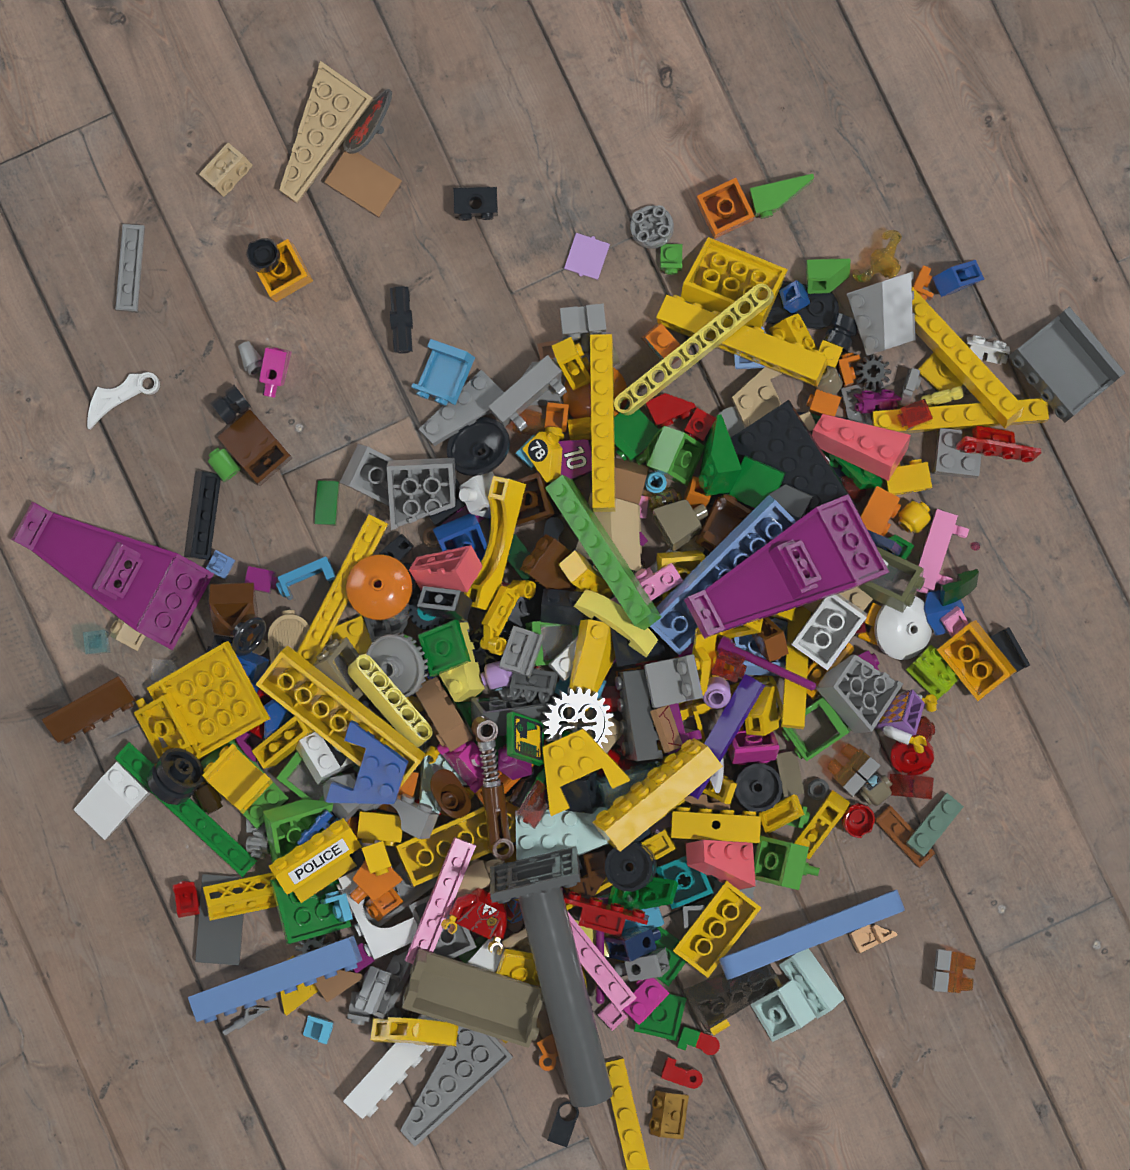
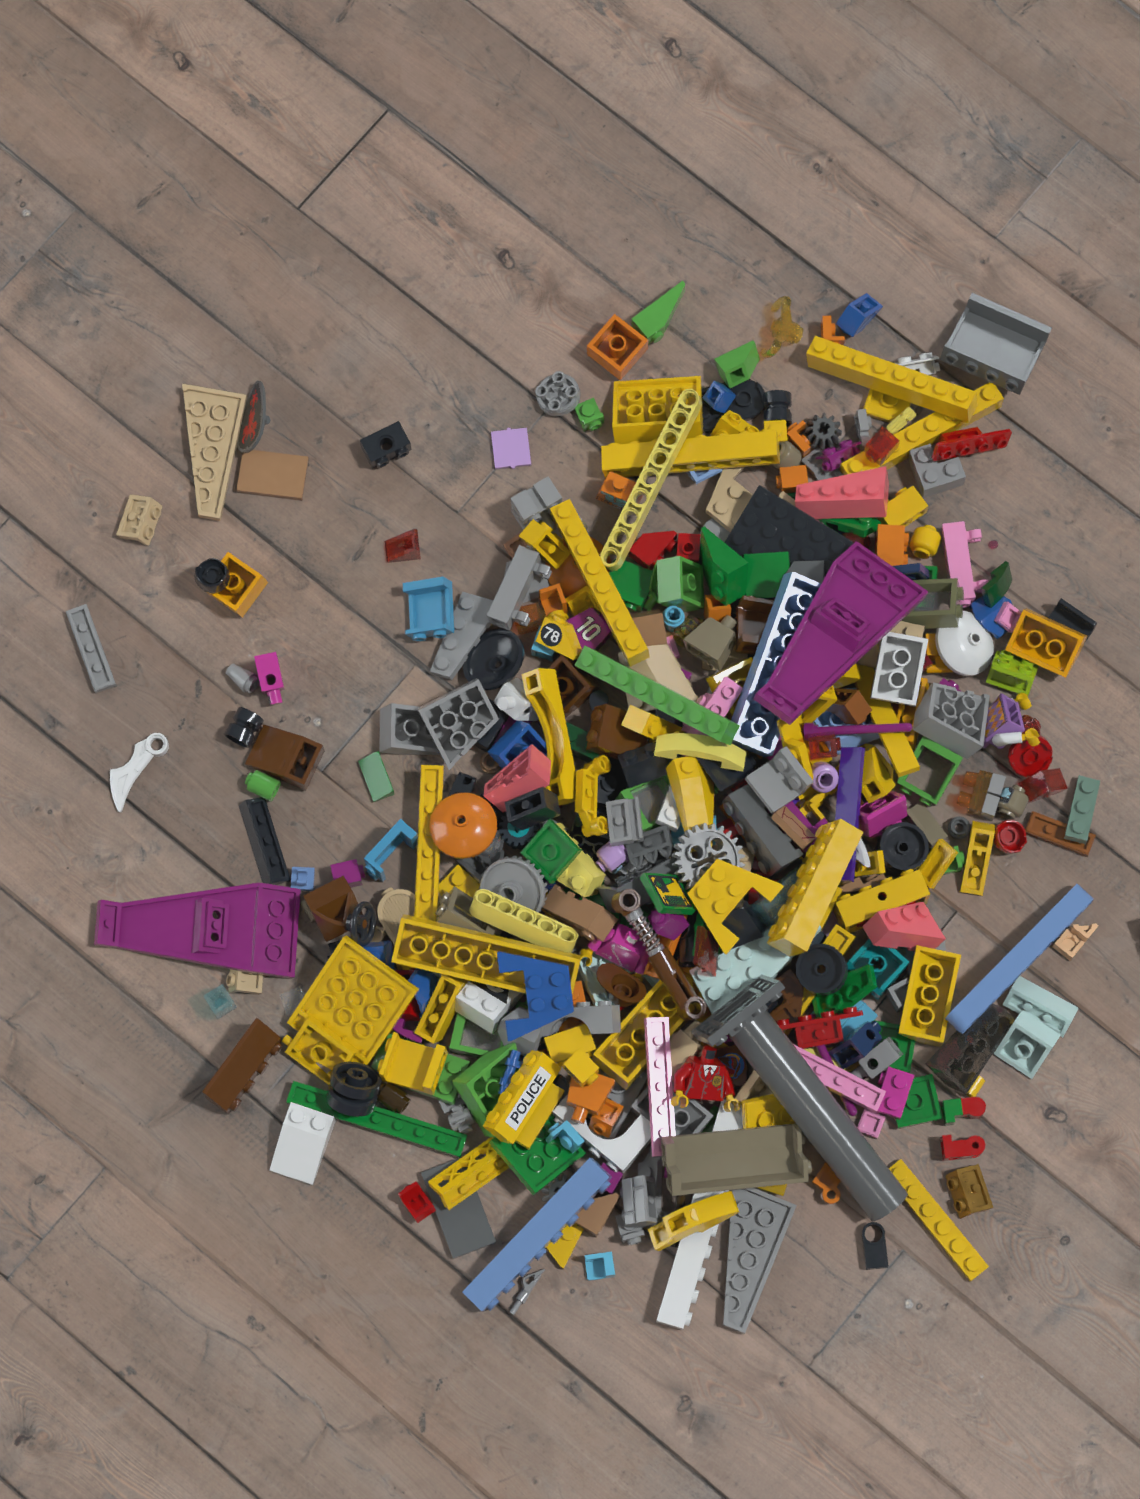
camera: 25 degrees left, 10 degrees down
(401, 320) = (367, 580): black piece -> none
(447, 304) = (403, 547): none -> clear red slope
(782, 863) = (959, 906): bright green piece -> none
(884, 313) = (809, 371): light grey wedge -> none

